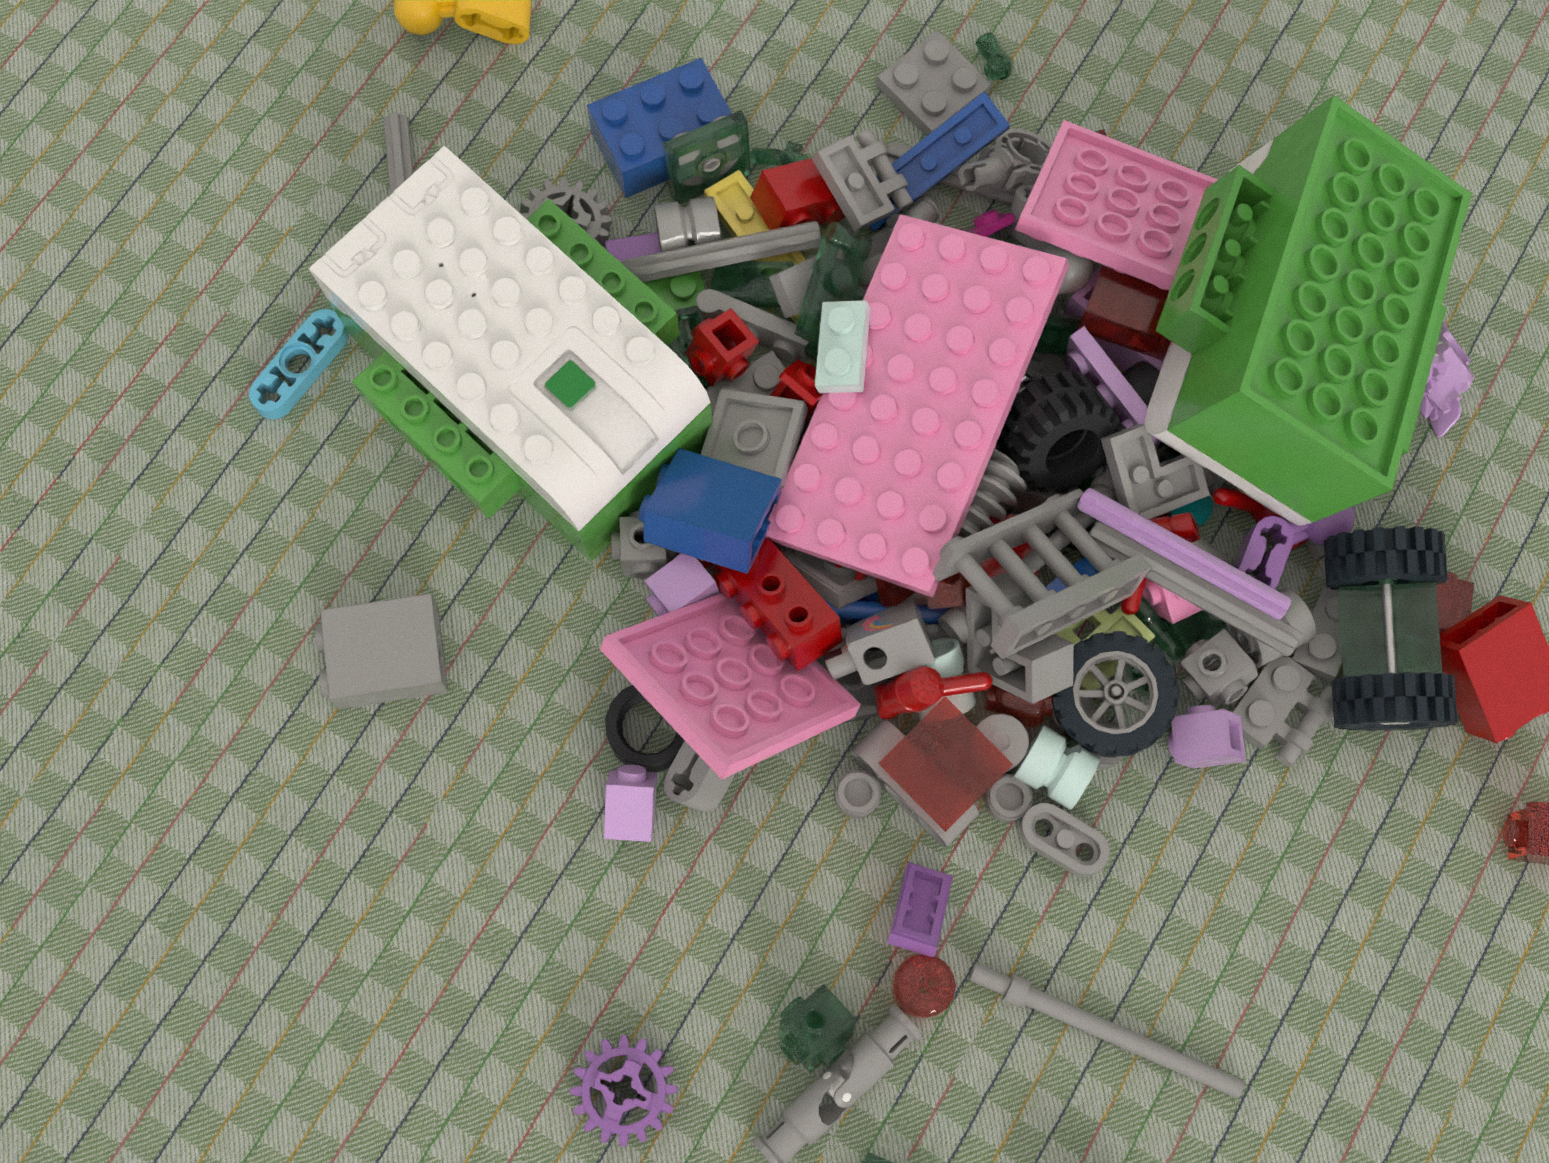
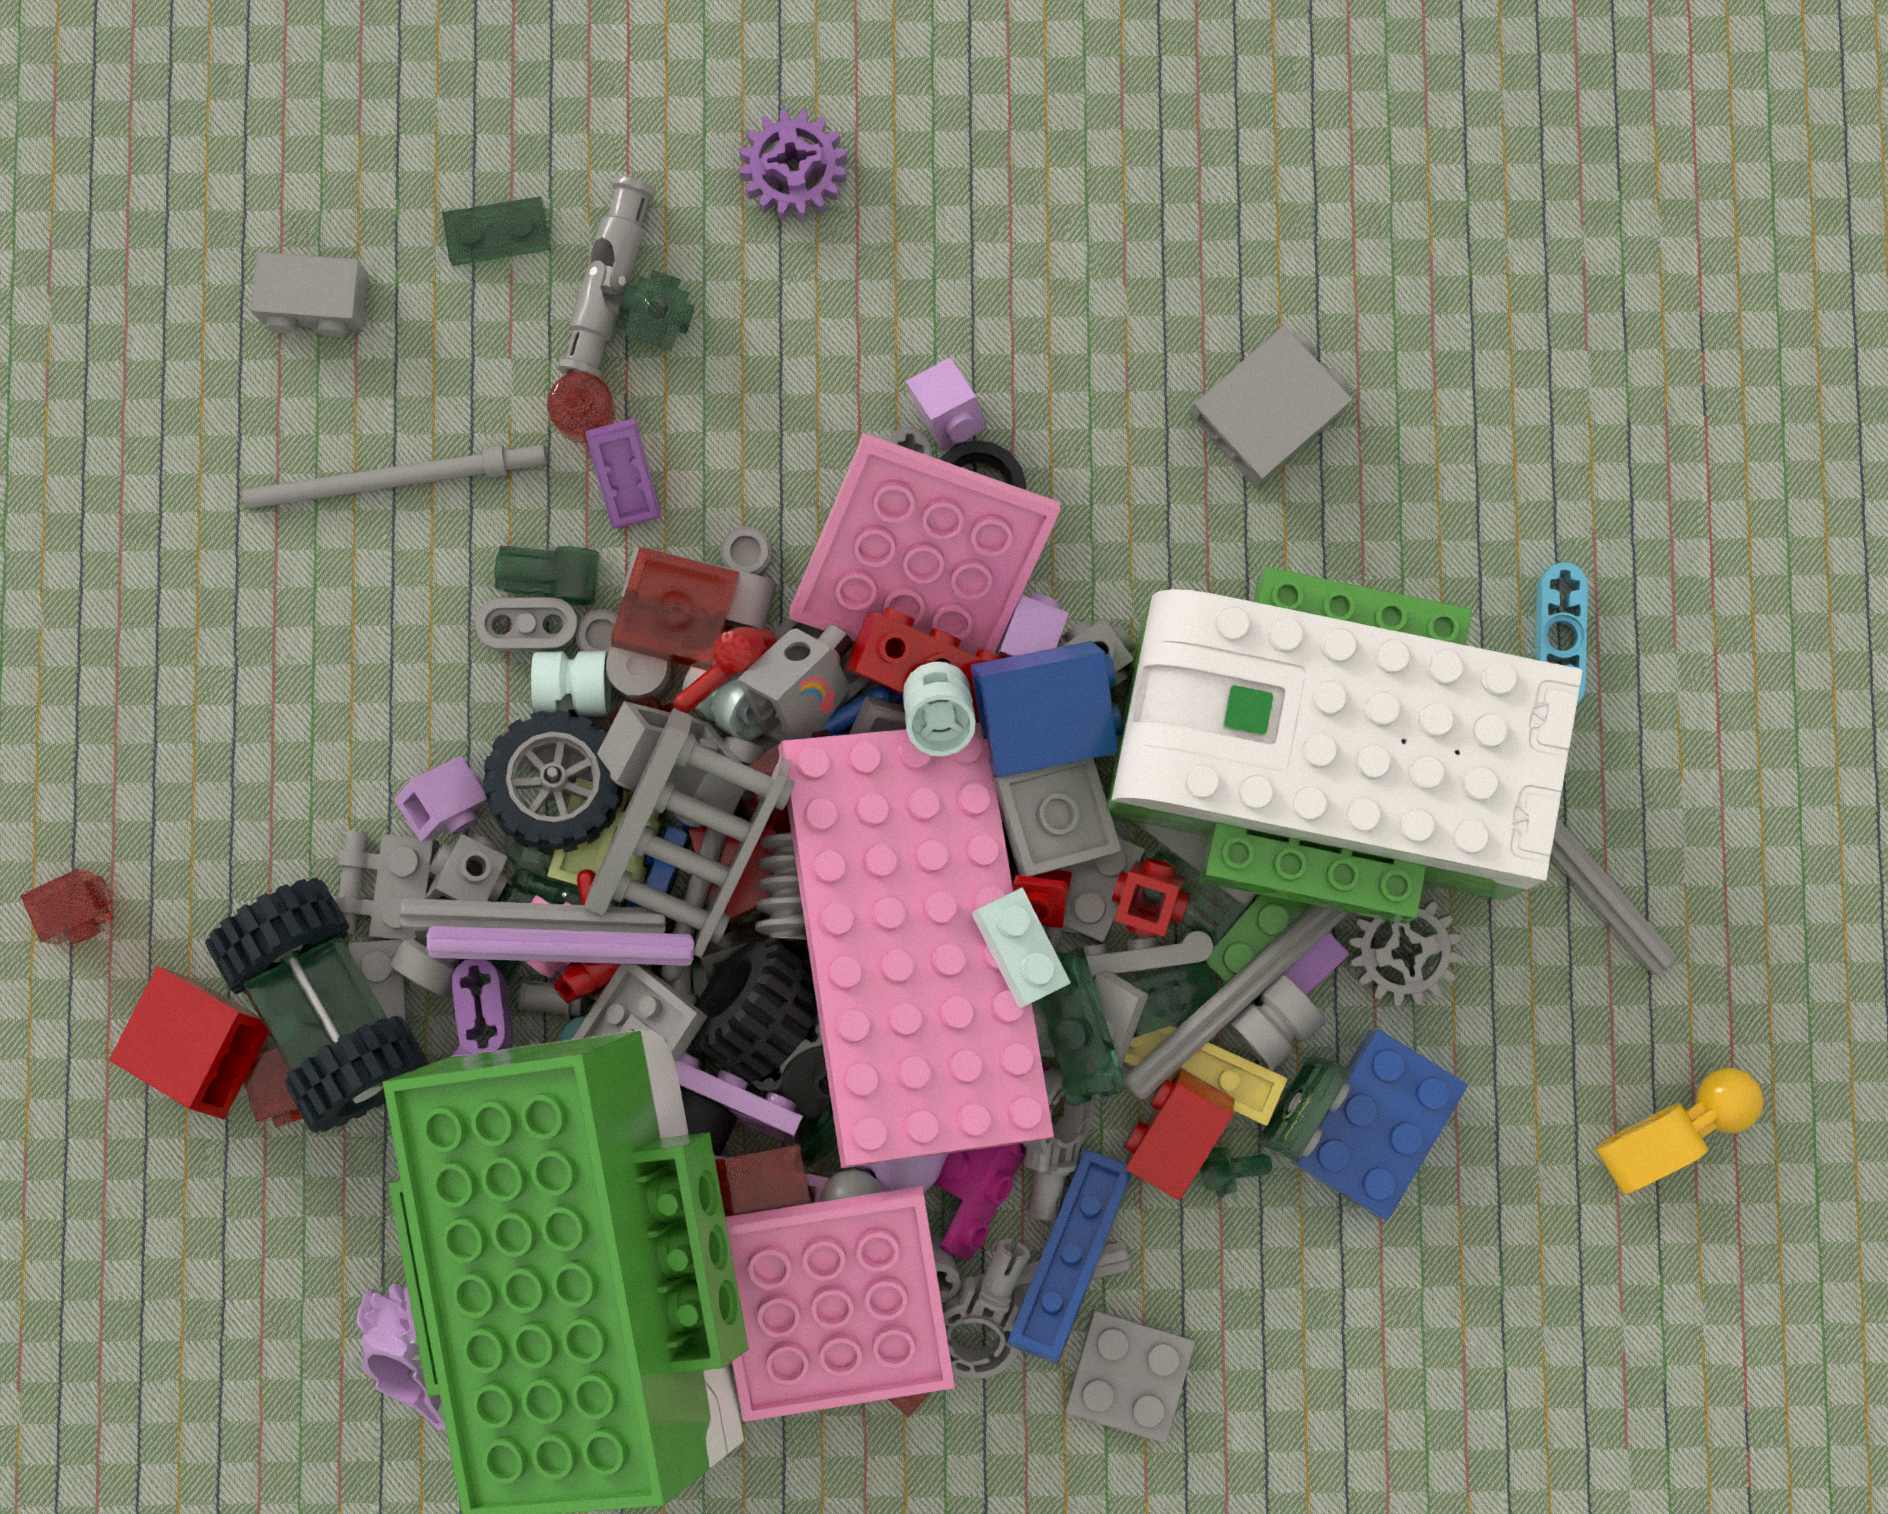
camera: 150 degrees right, 10 degrees up
(794, 547) = (938, 709): none -> light aqua wheel
(855, 185) = (1131, 1165): light grey plate -> none
(998, 63) = (1080, 1453): clear green arm -> none
(1013, 861) = (563, 573): none -> clear green piece

